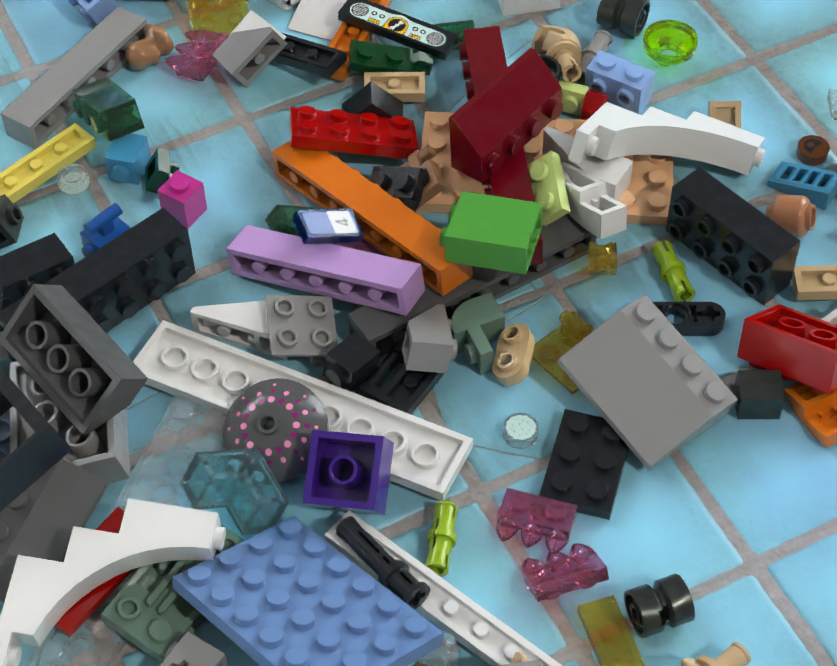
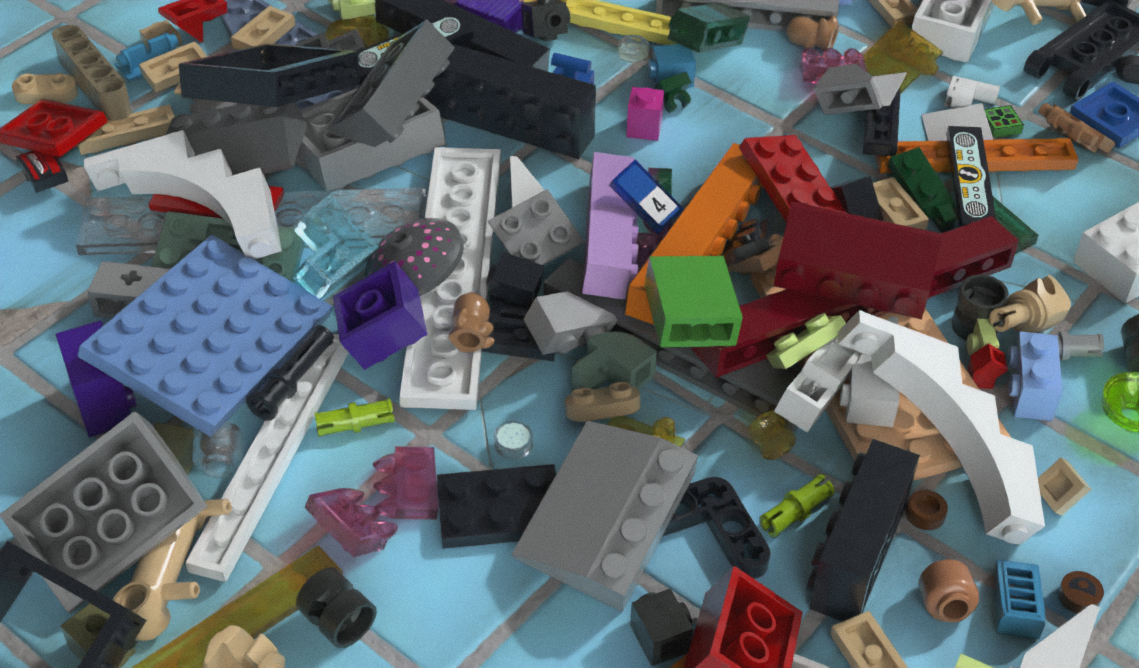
camera: 65 degrees right, 5 degrees down
(390, 407) = (471, 323): none -> medium nougat animal

